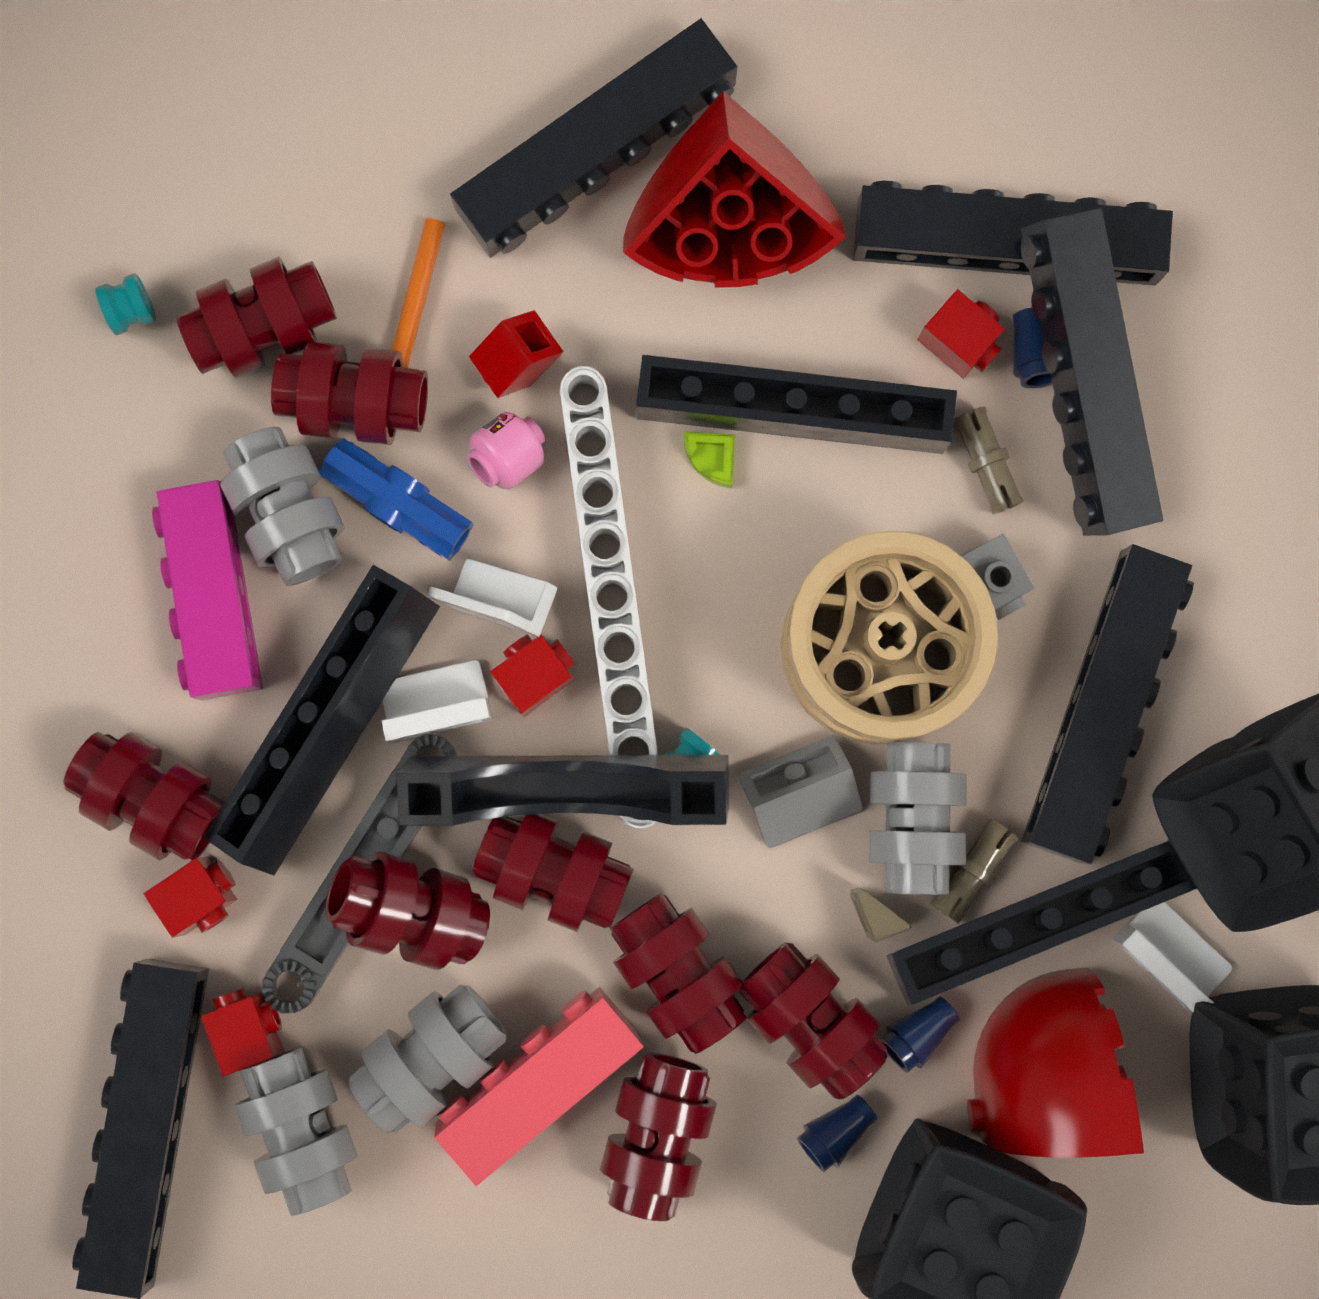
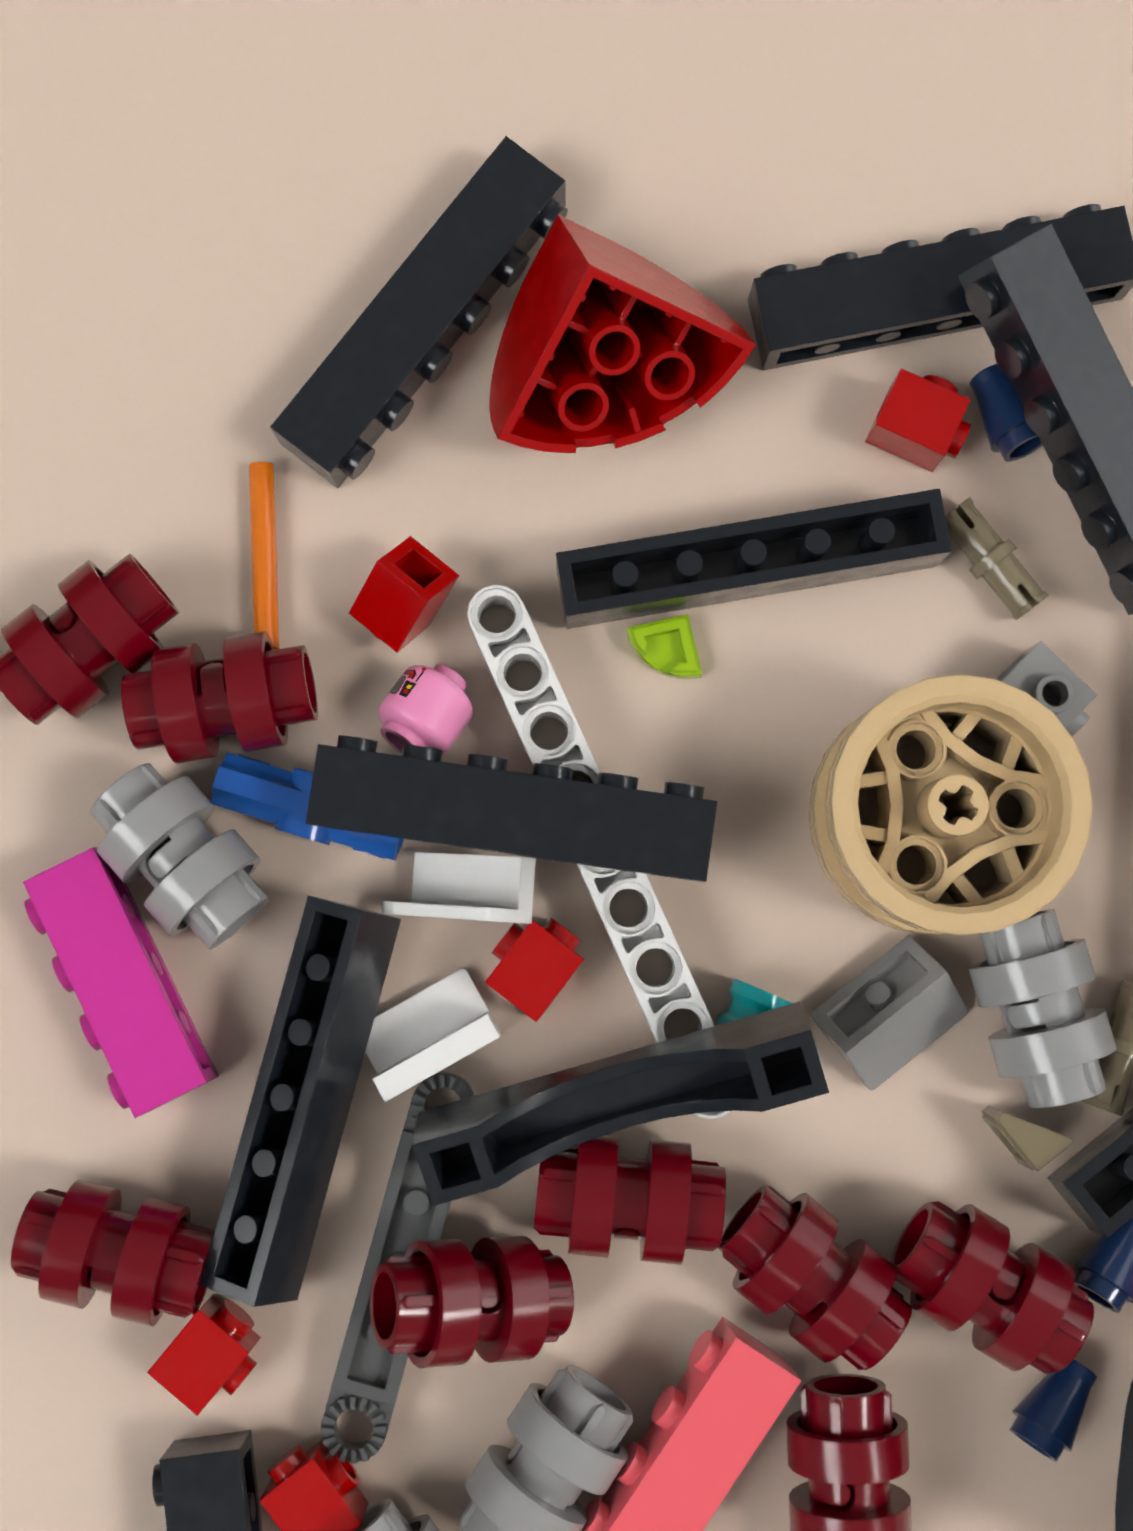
camera: 15 degrees left, 0 degrees up
(549, 544) = (512, 811): none -> black brick

